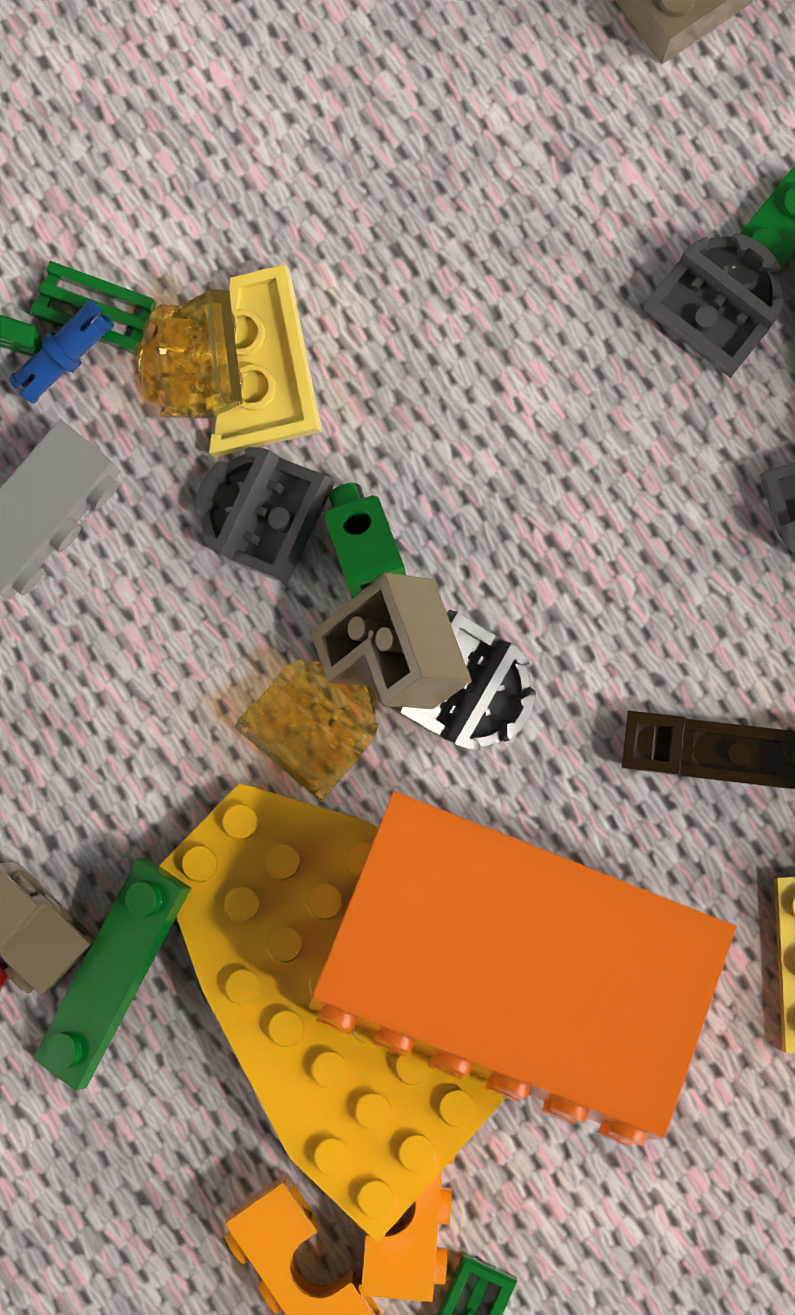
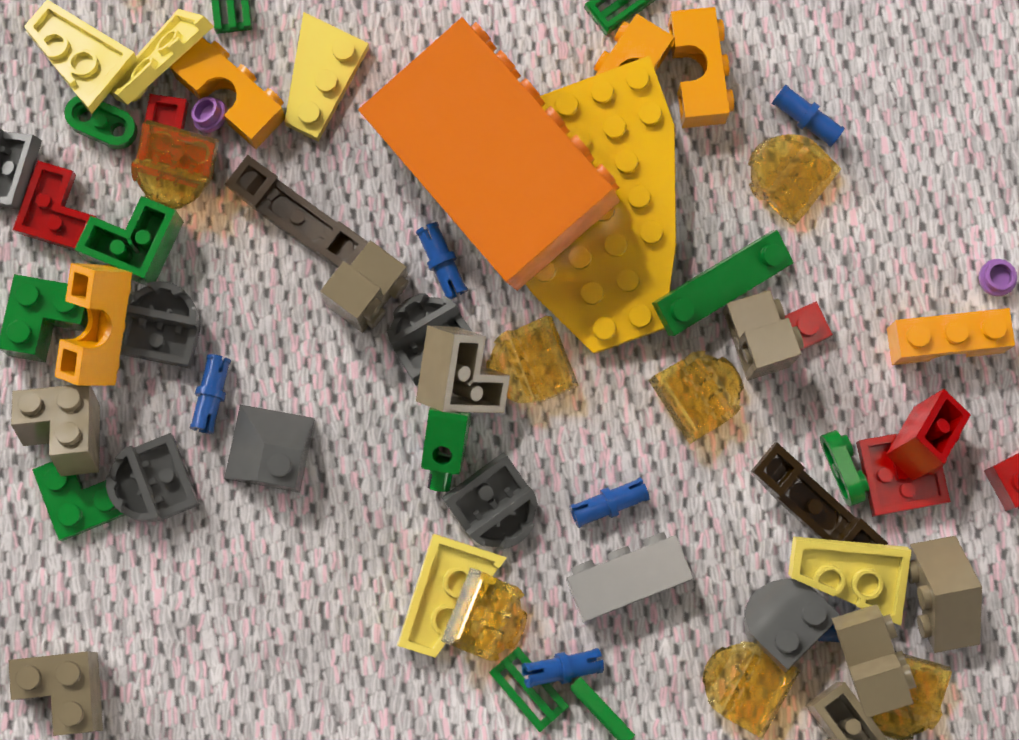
camera: 160 degrees left, 5 degrees down
(67, 805) = (699, 393): none -> clear yellow slope
(99, 1184) = (790, 174): none -> clear yellow slope
(113, 596) = (609, 502): none -> blue pin
(117, 1285) = (808, 115): none -> blue pin
(510, 798) = (441, 260): none -> blue pin
(592, 700) = (365, 286): none -> dark tan brick
(593, 426) = (269, 448): none -> dark grey slope
(713, 453) = (210, 394): none -> blue pin

